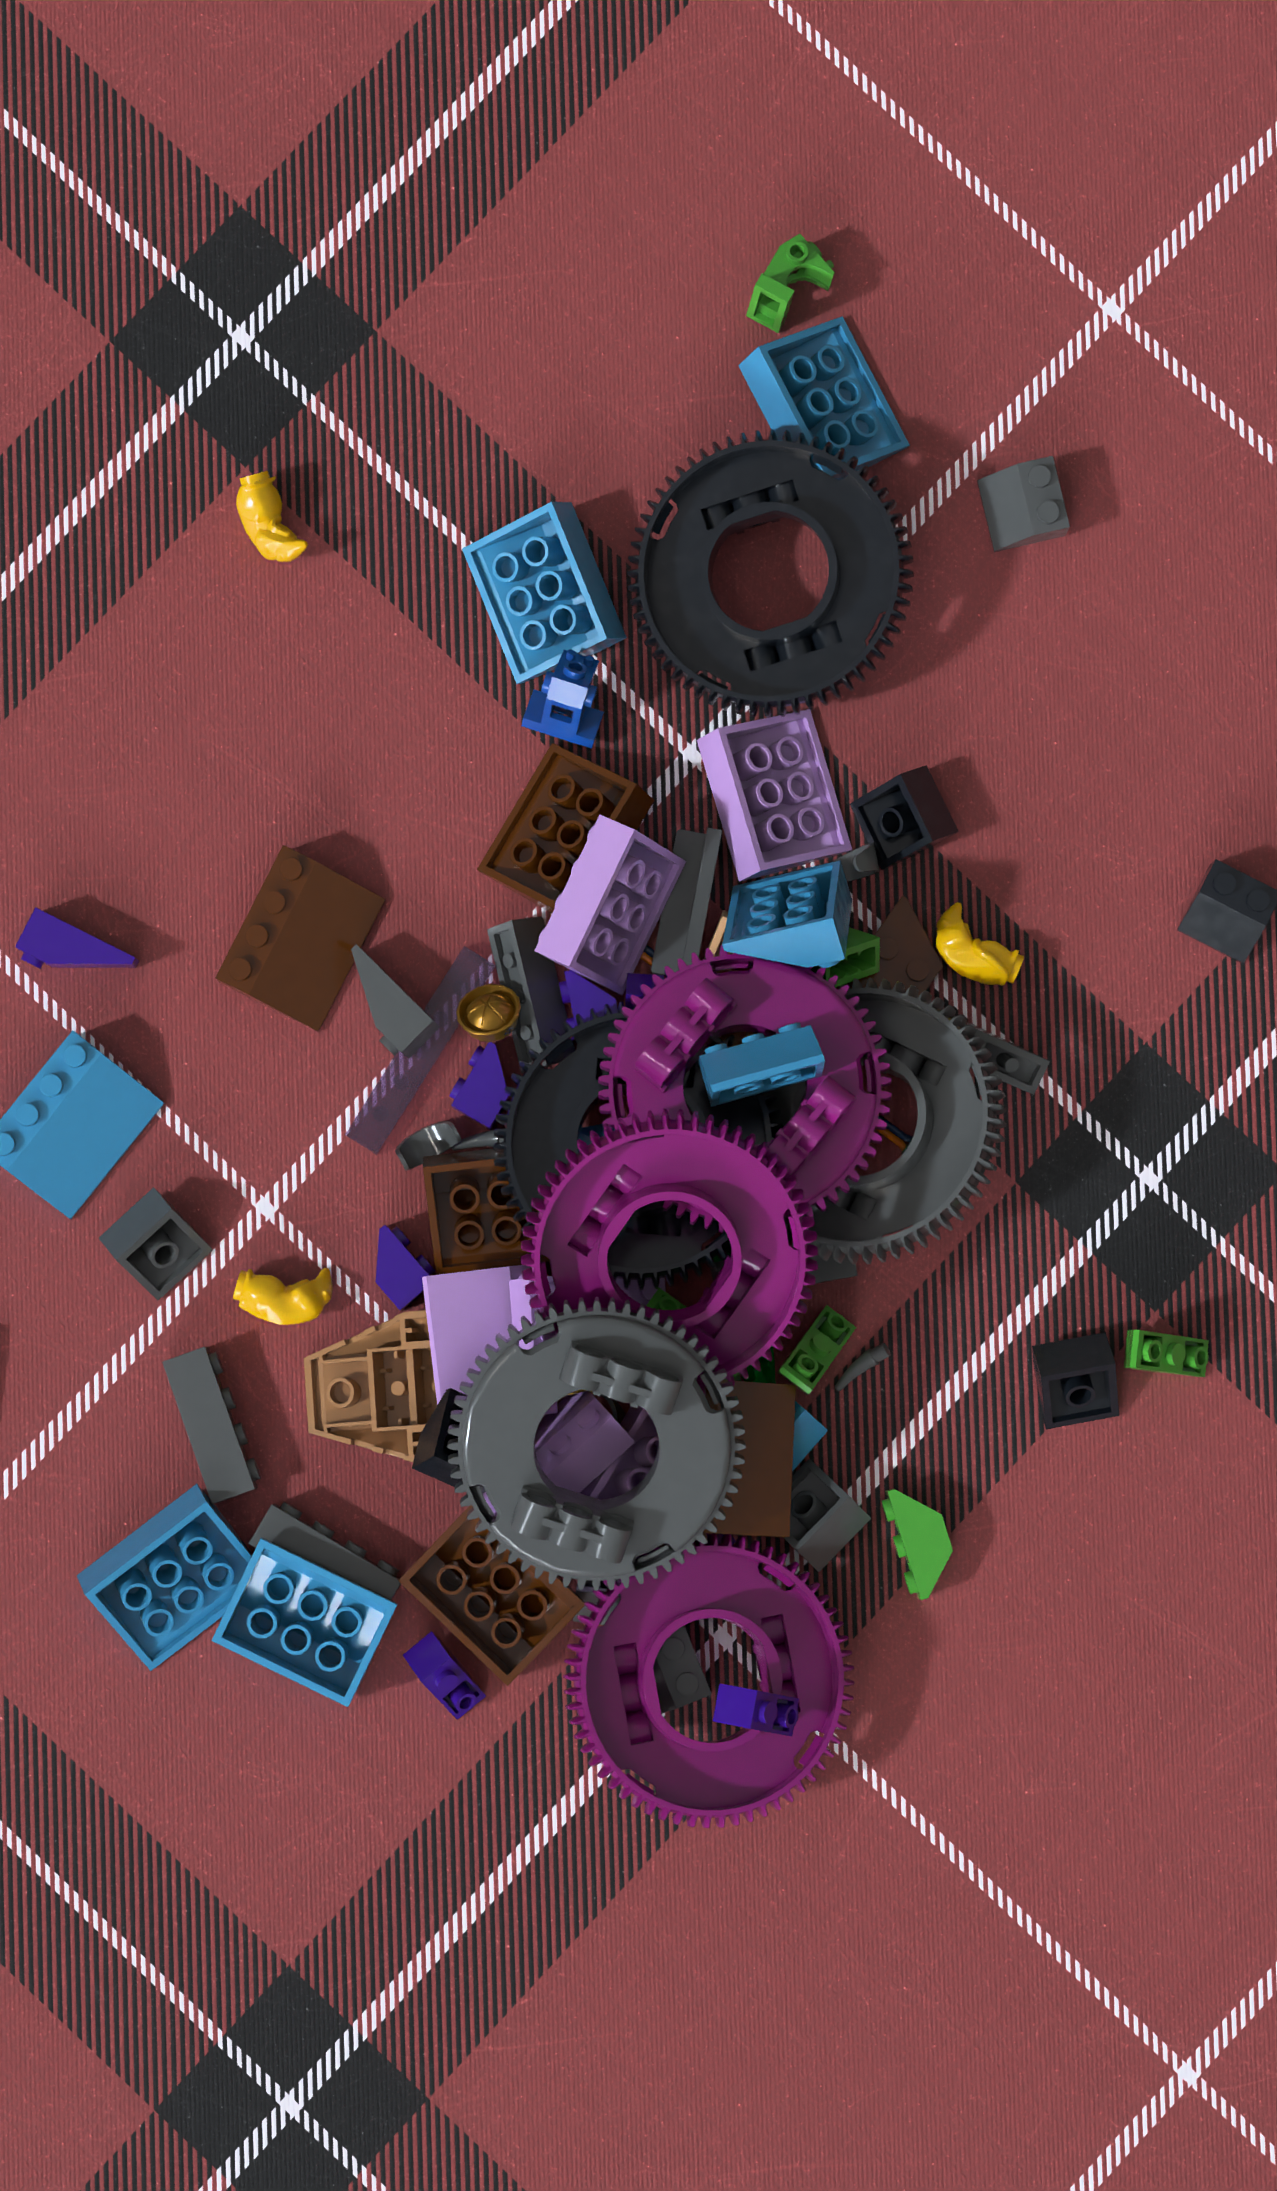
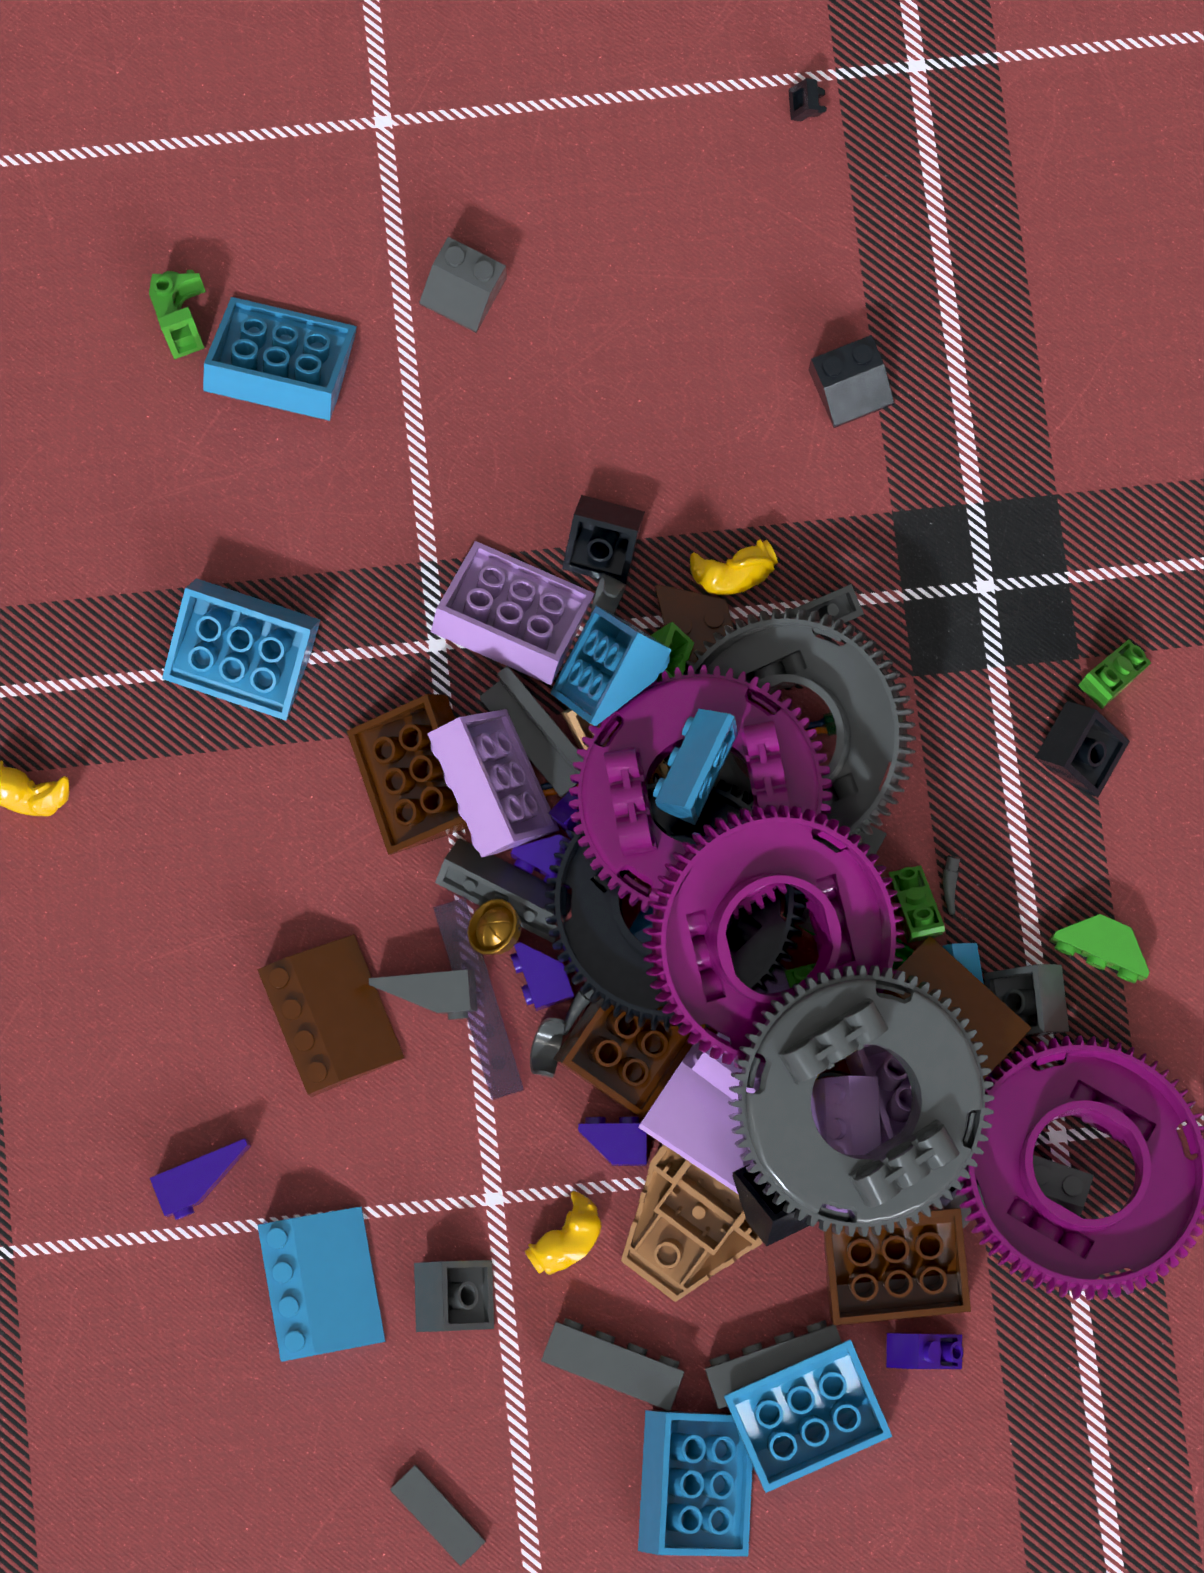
camera: 45 degrees left, 5 degrees down
(568, 693) = (333, 701): blue tile -> none
(743, 491) = (293, 451): black piece -> none
(756, 1710) = (1134, 1150): dark purple slope -> none

